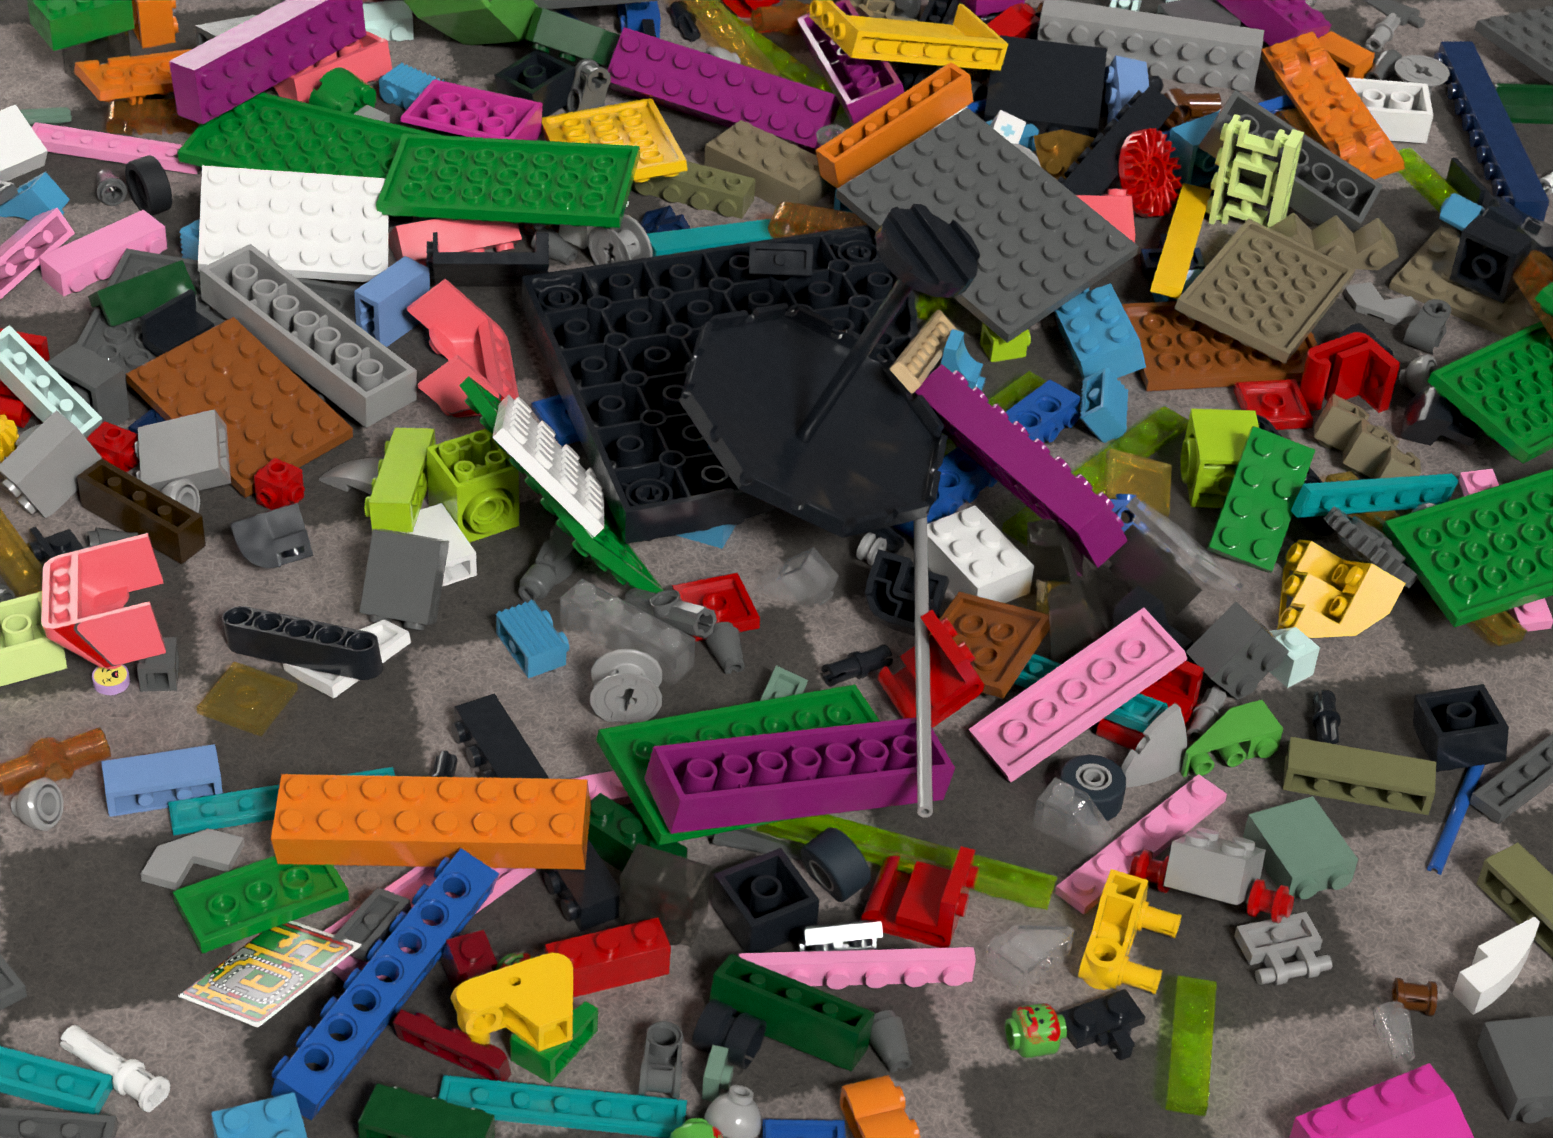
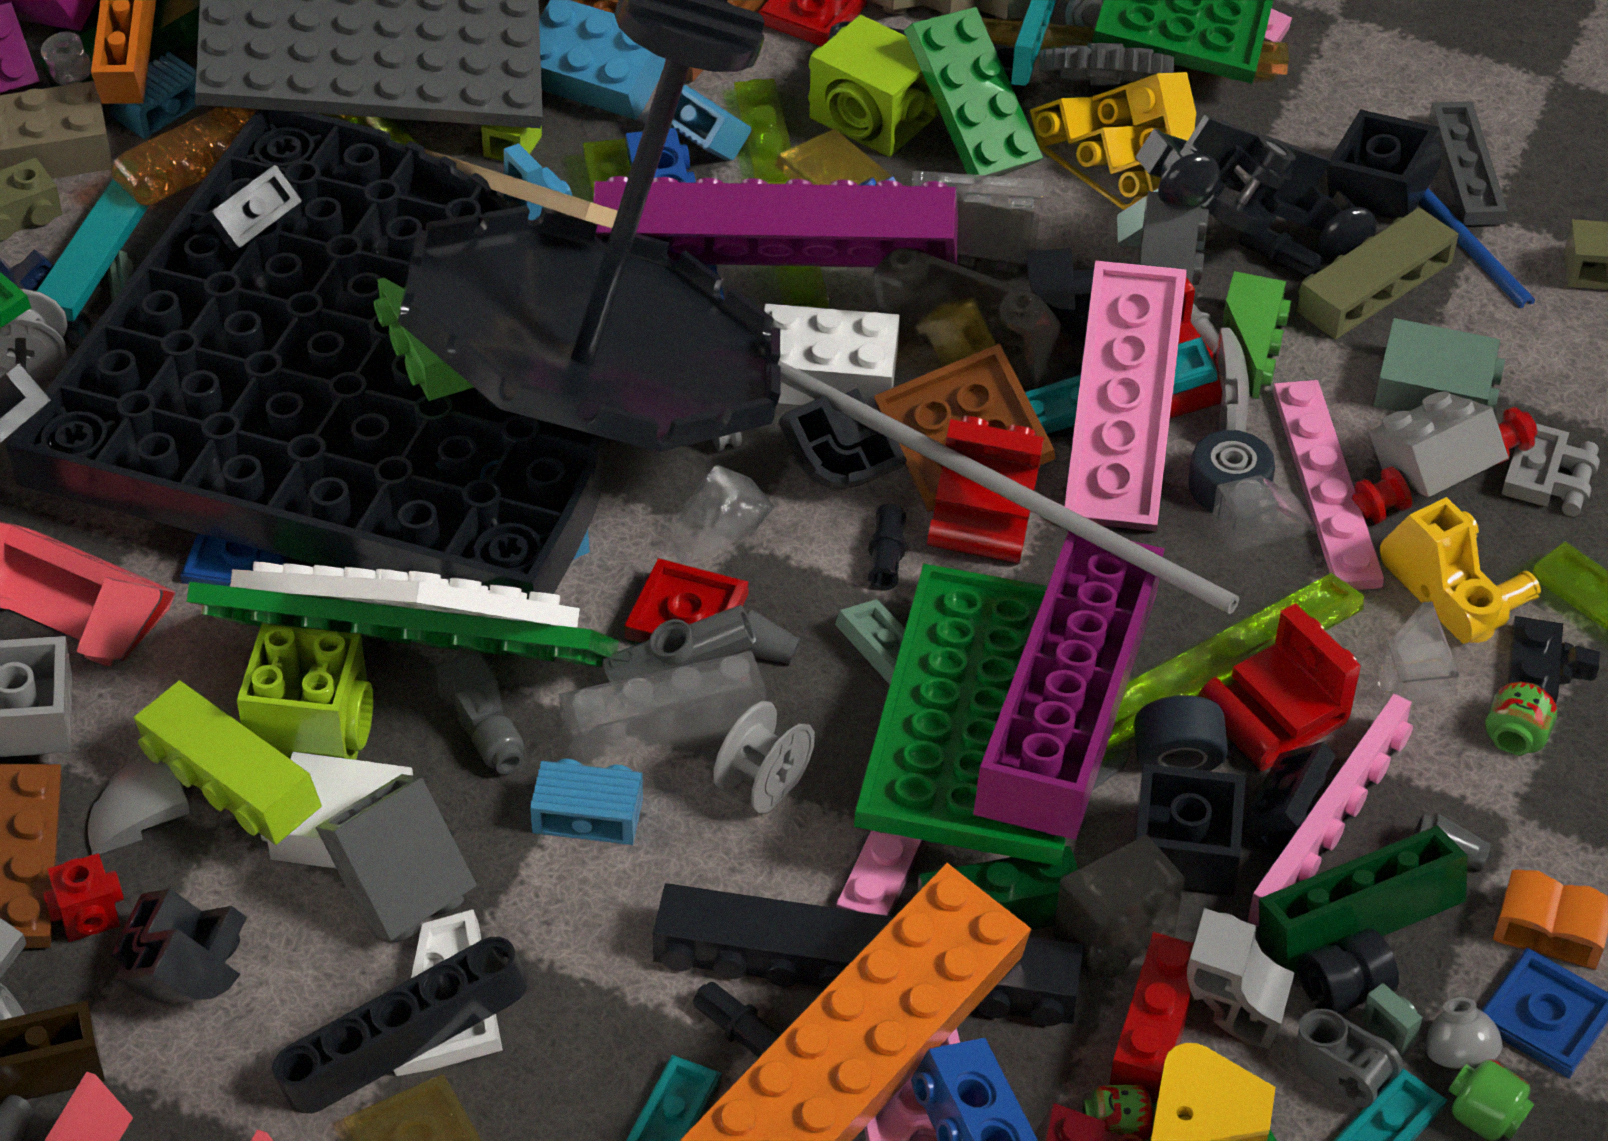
camera: 50 degrees left, 5 degrees up
(659, 961) = (1238, 979): none -> light grey brick
(1323, 655) = (1280, 183): none -> black piece

